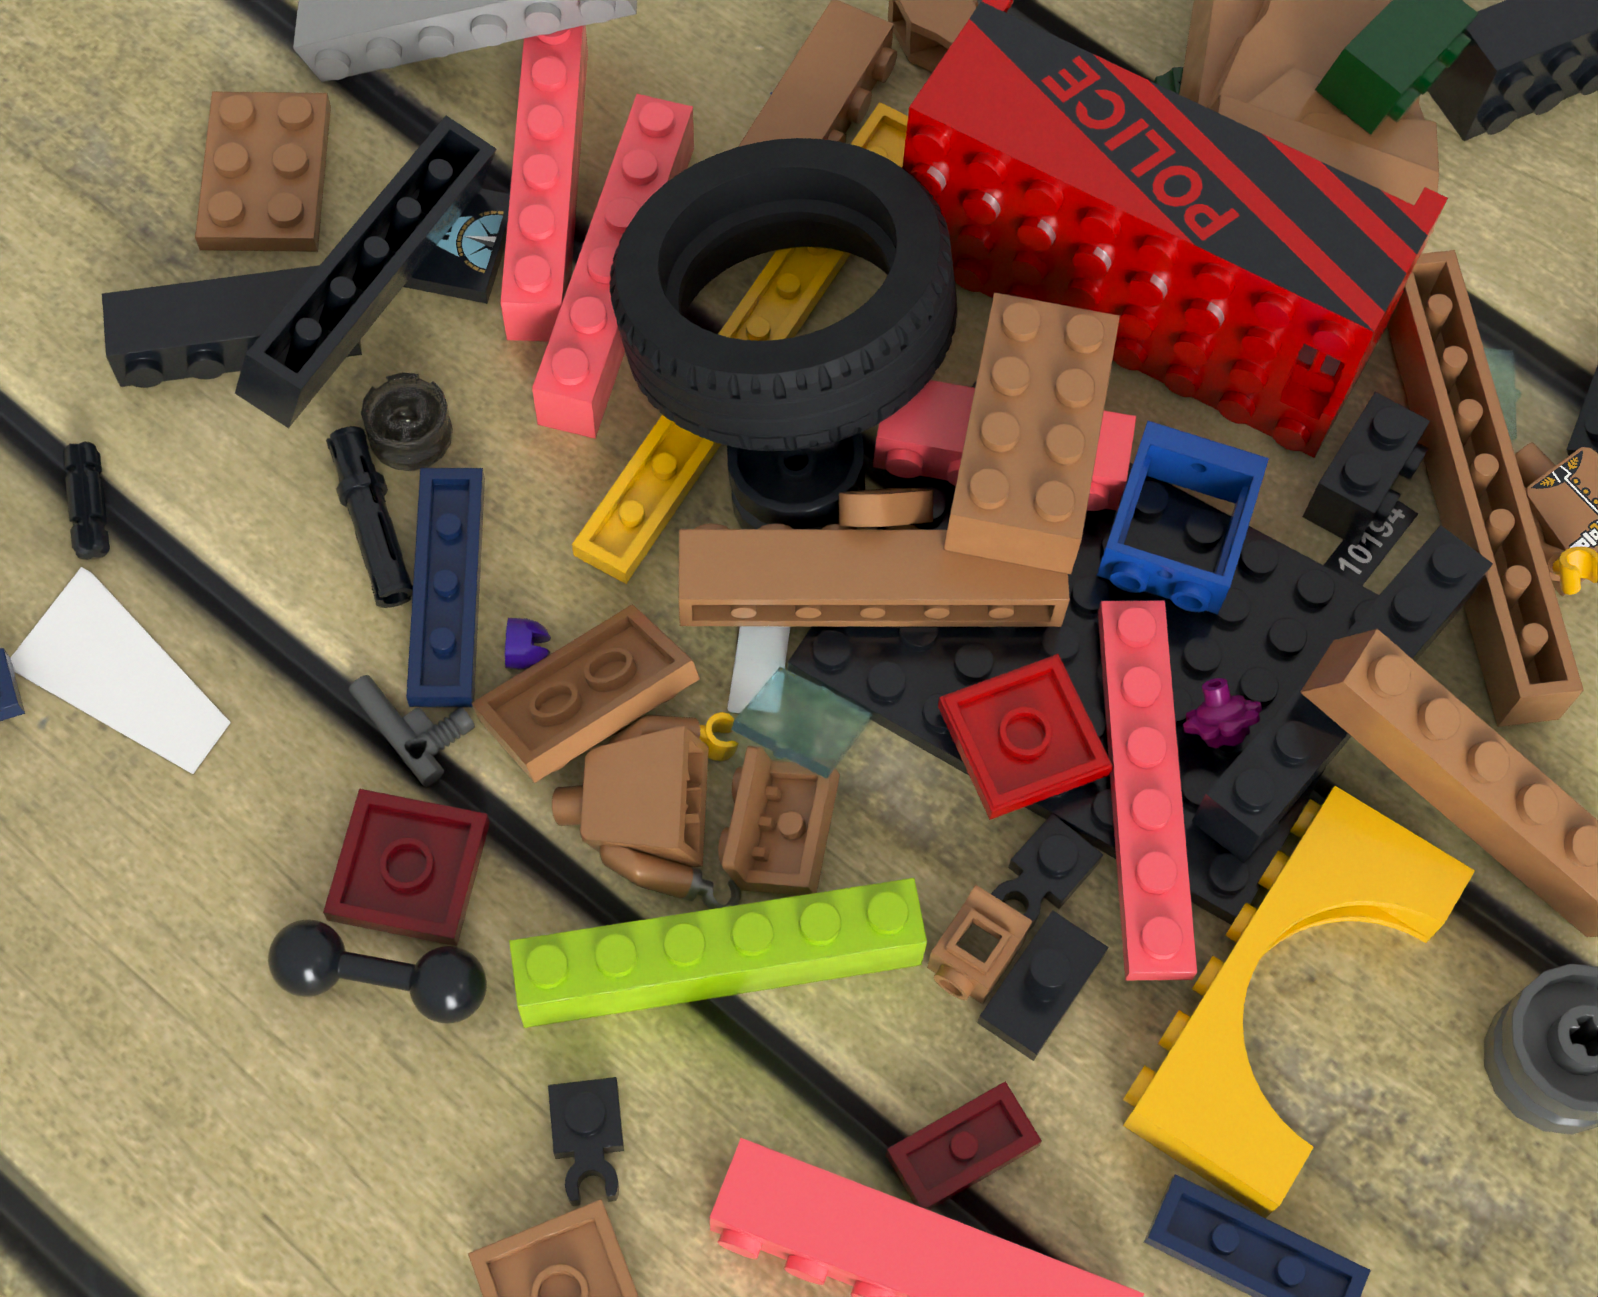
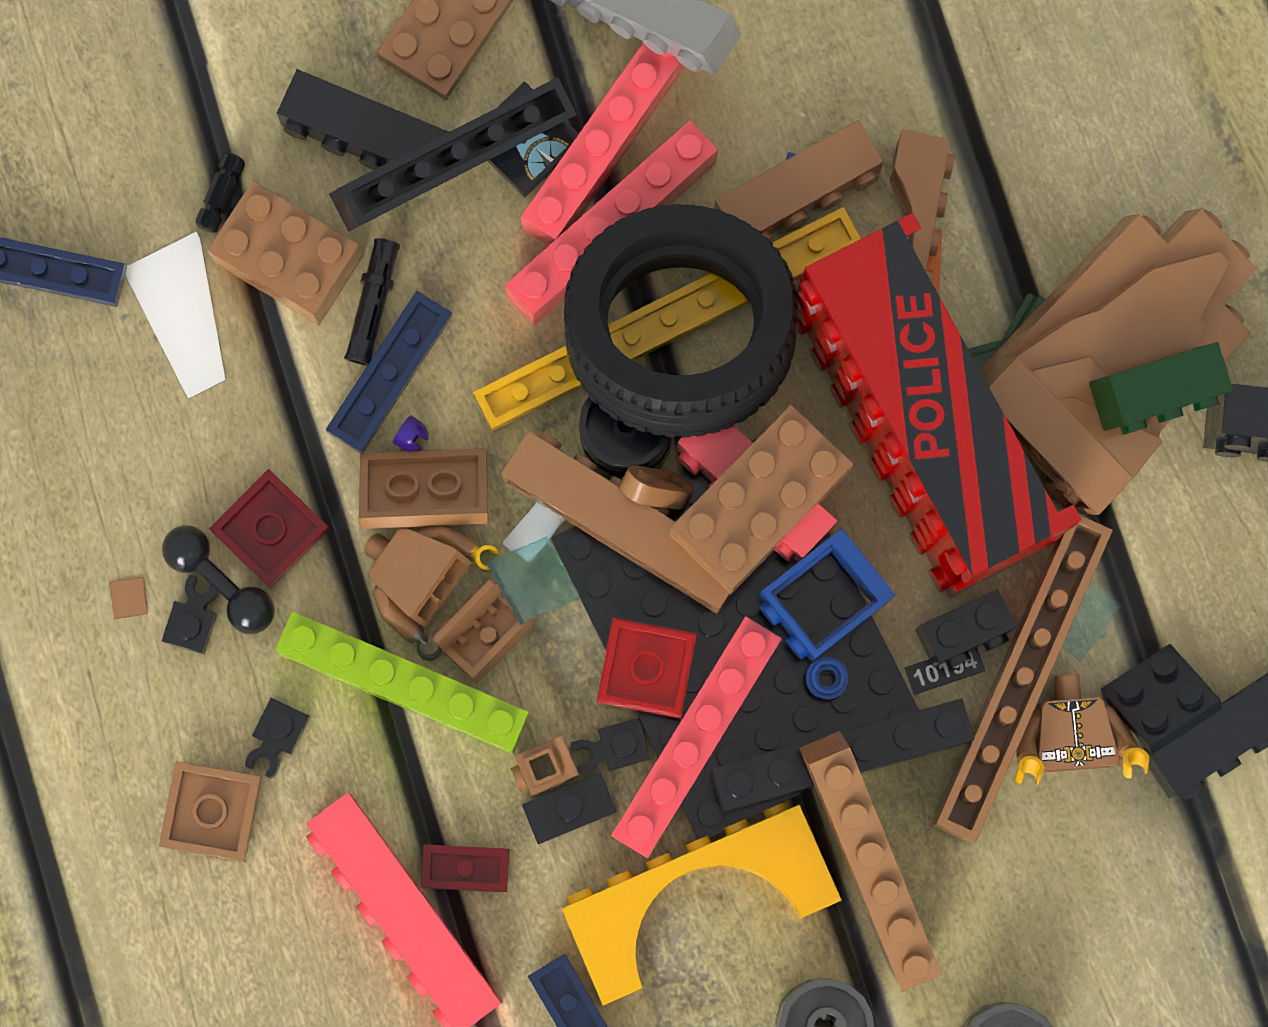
camera: 30 degrees right, 15 degrees up
(217, 517) = (285, 253): none -> medium nougat brick
(262, 1079) = (128, 598): none -> medium nougat sticker
(373, 1056) = (191, 623): none -> black plate
(406, 422) = (428, 253): clear smoke wheel -> none
(411, 730) = (320, 446): dark grey hose -> none
(1222, 716) = (763, 726): magenta plant -> none
(1255, 600) = (840, 674): none -> blue plate

